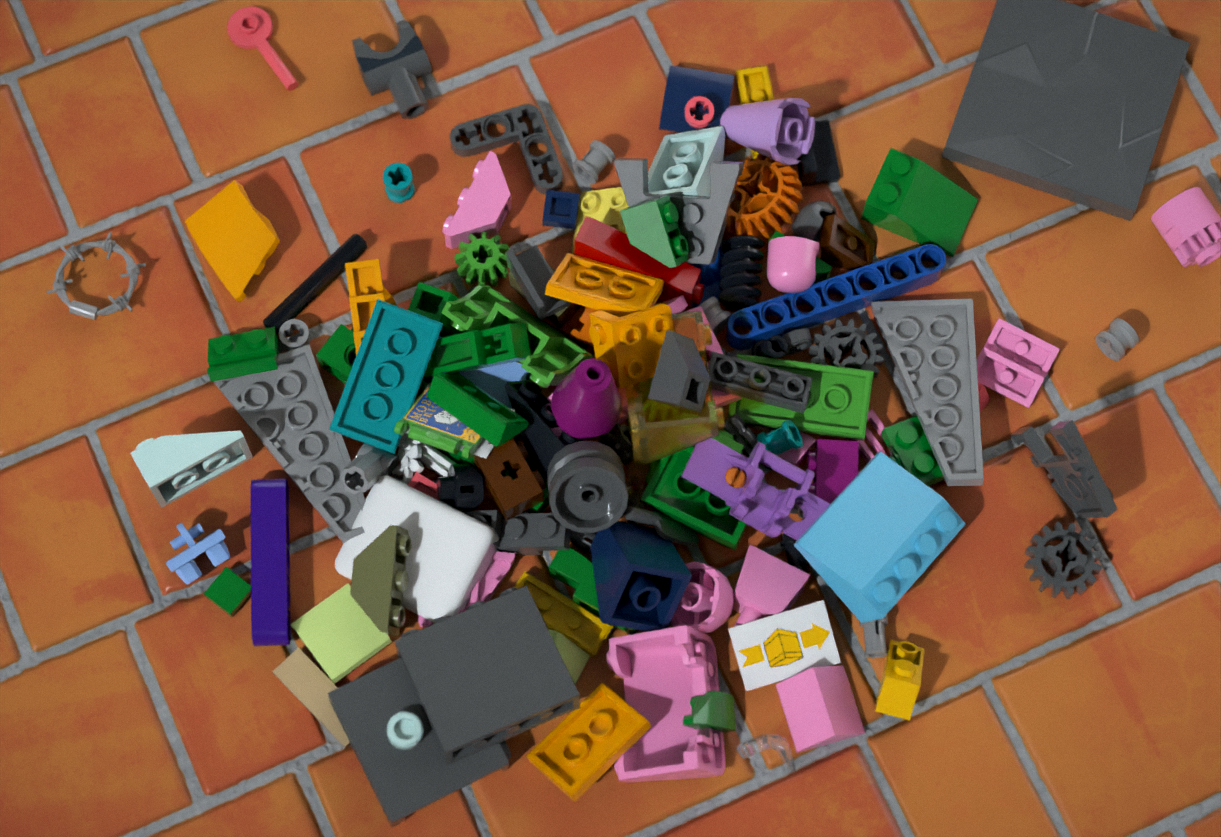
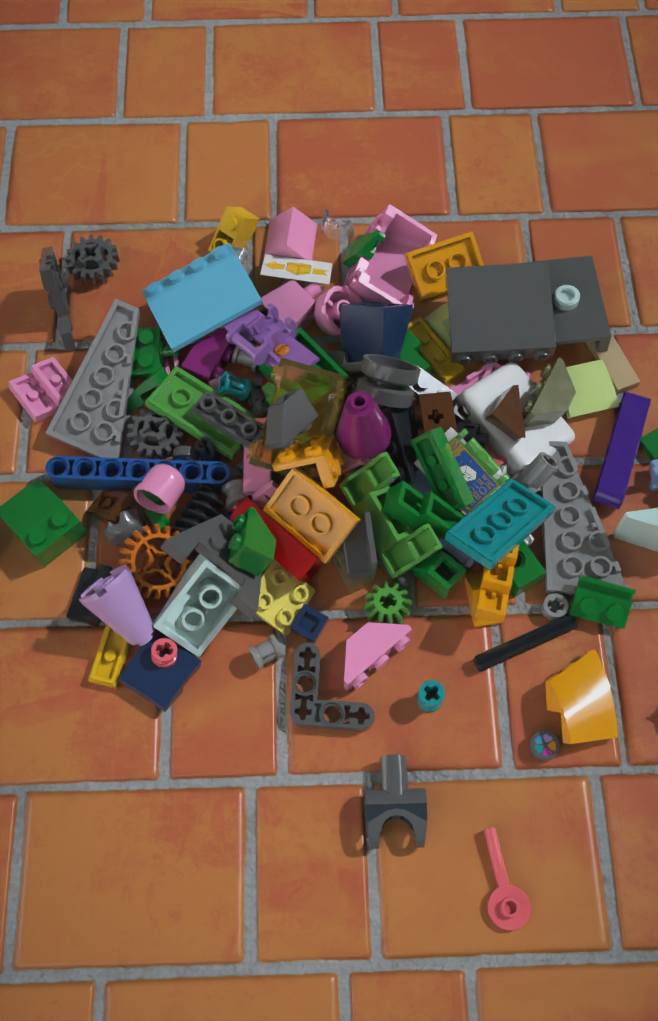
camera: 155 degrees left, 5 degrees down
(261, 185) = (544, 745): none -> dark grey tile
(429, 520) = (507, 414): none -> reddish brown slope
(886, 404) = (143, 392): none -> green slope

